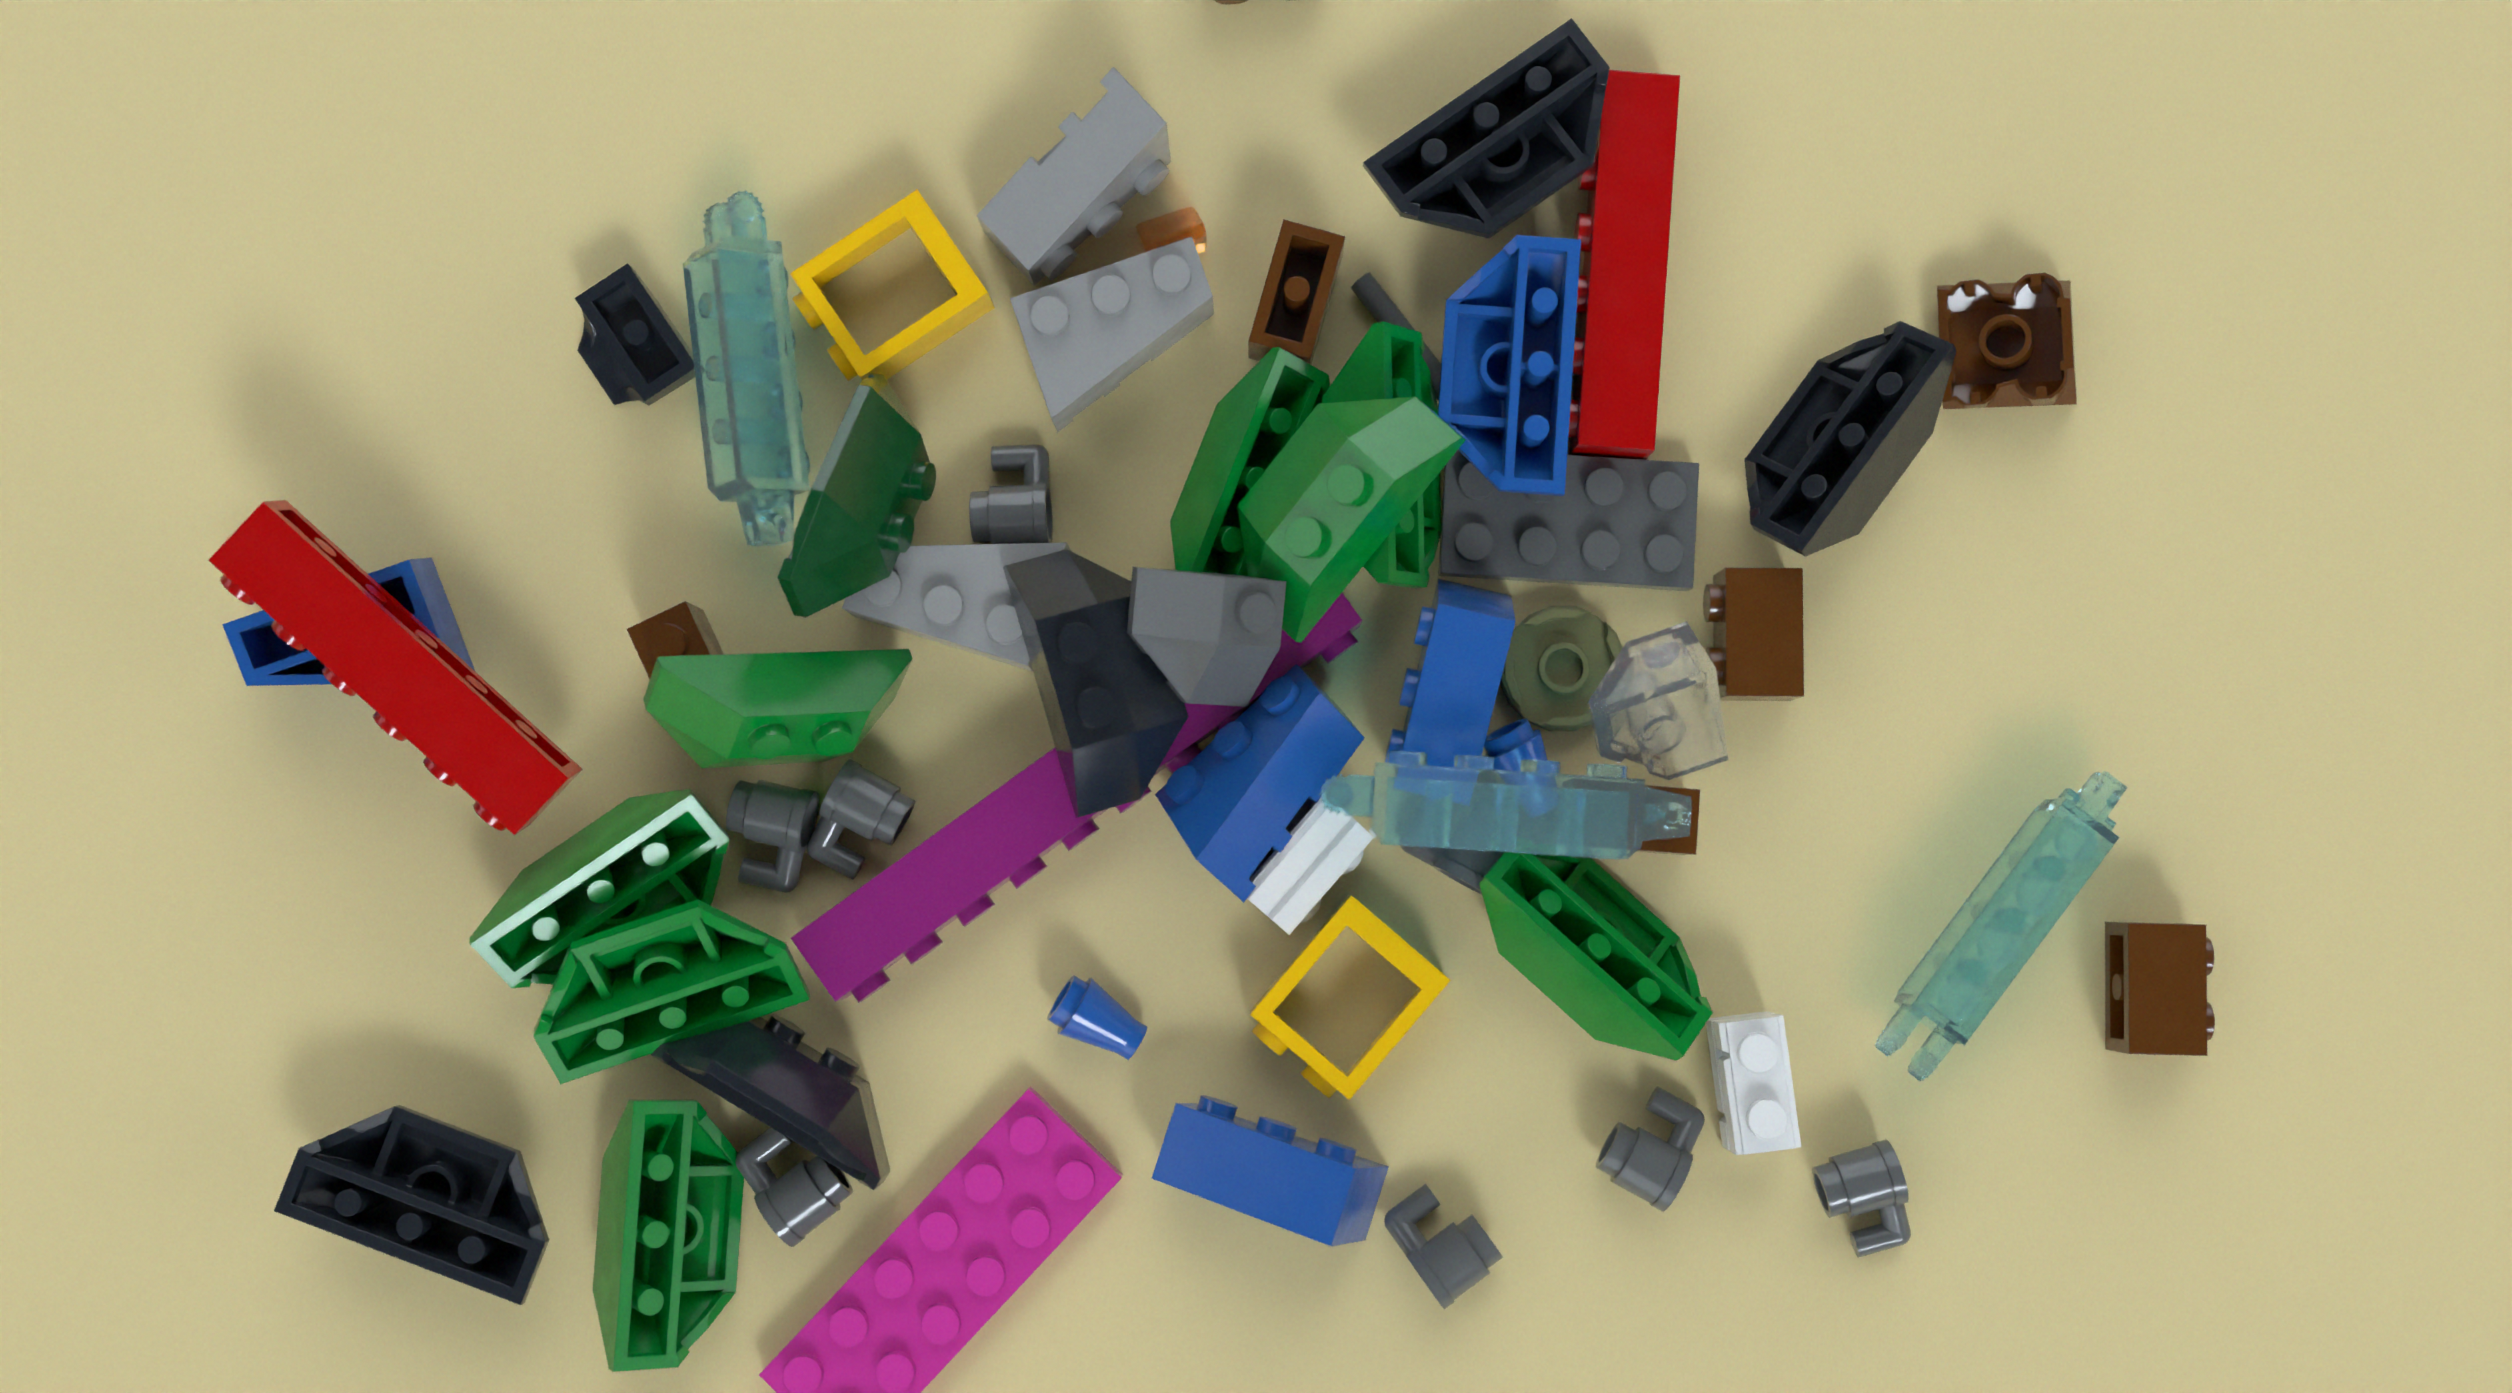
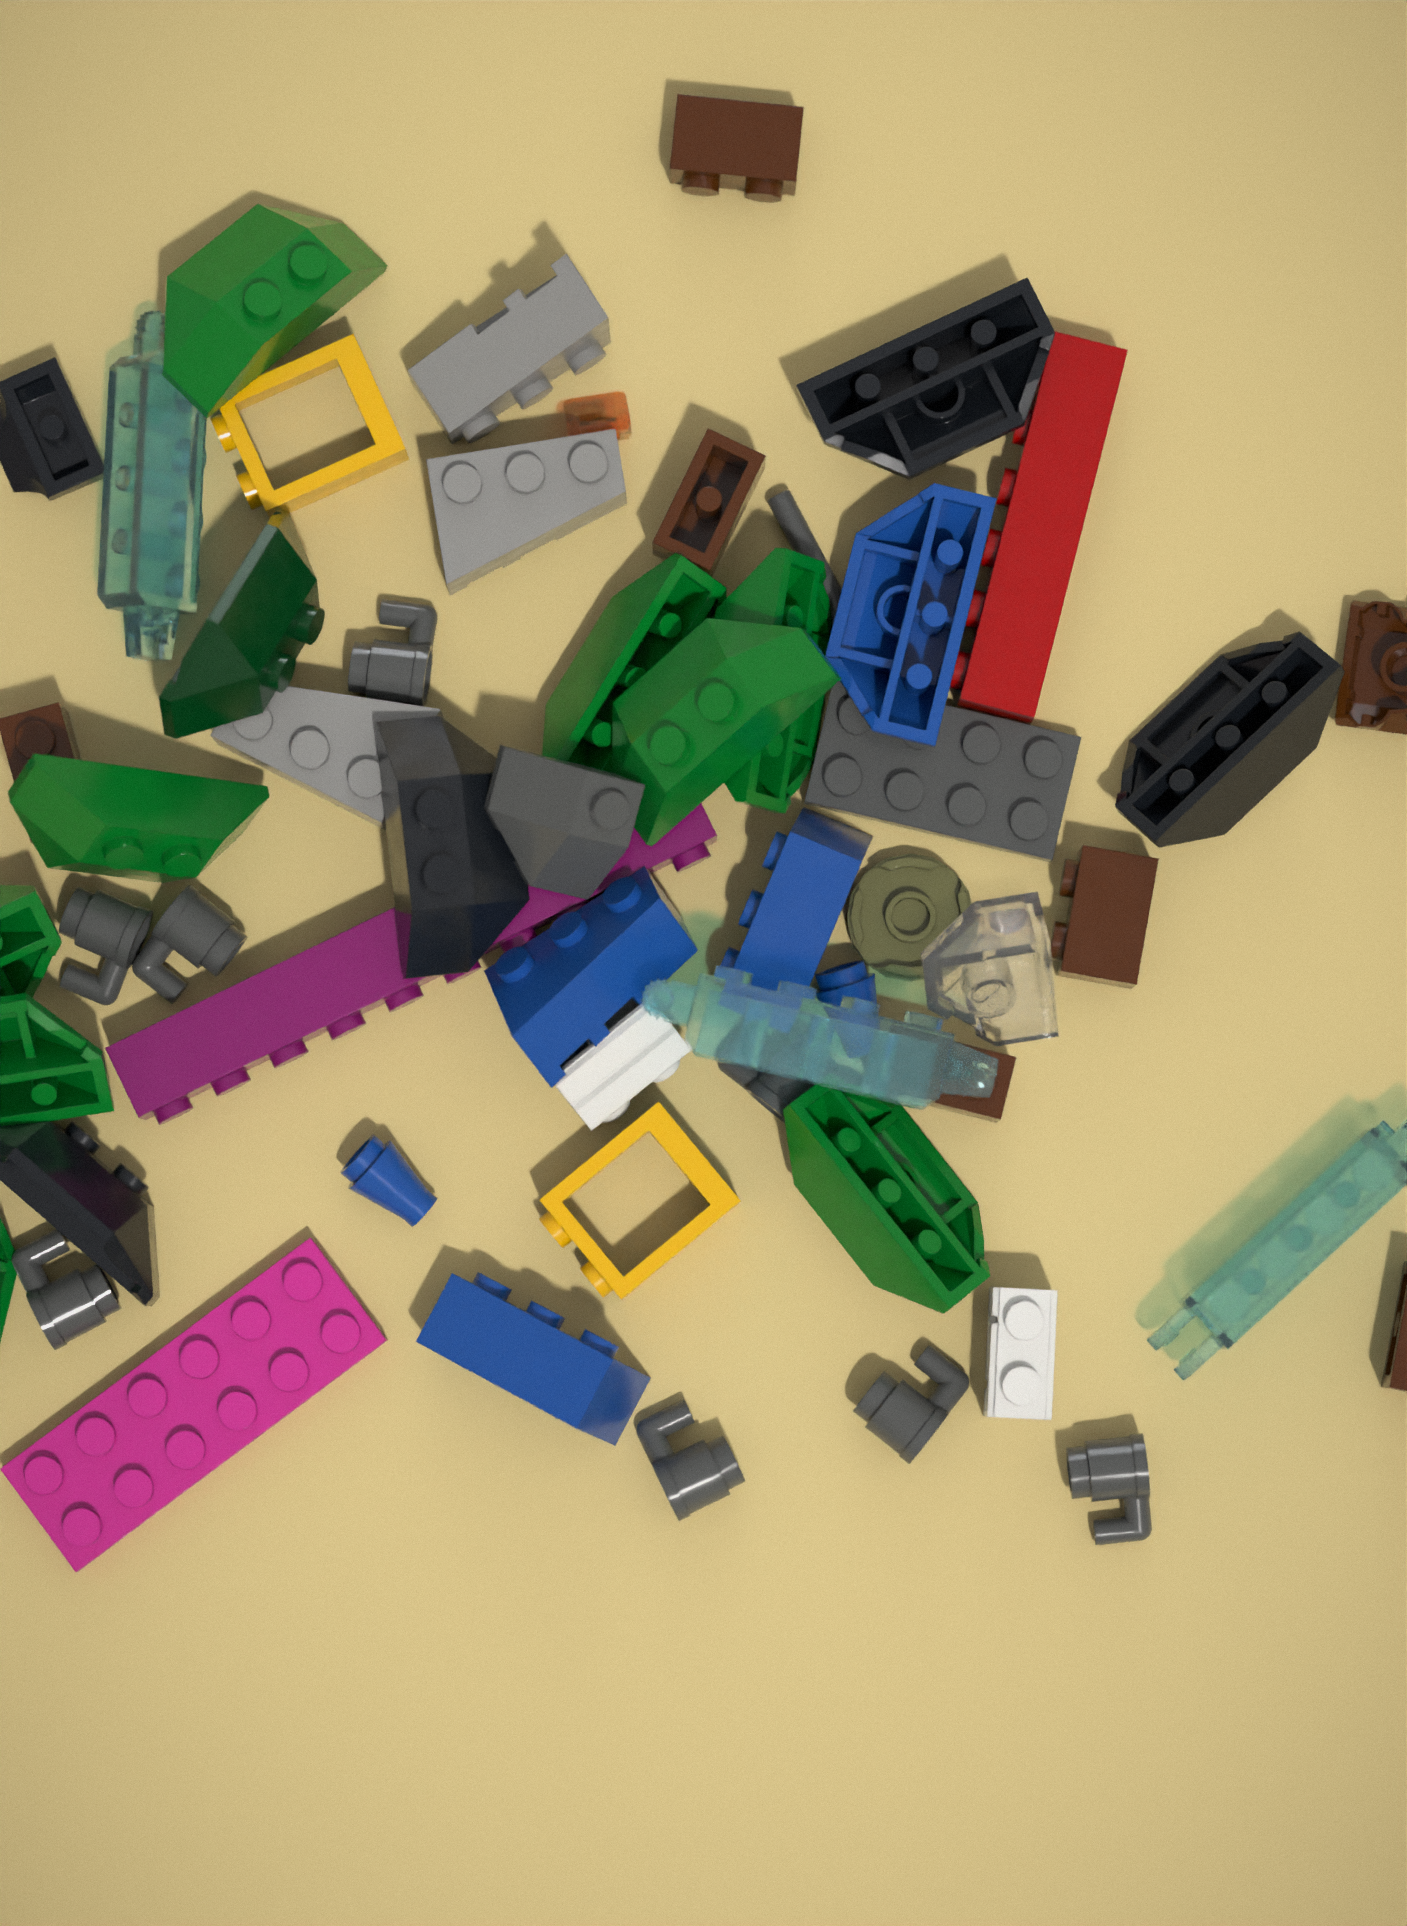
camera: 10 degrees right, 0 degrees up
(814, 172) = (256, 298): none -> green wedge

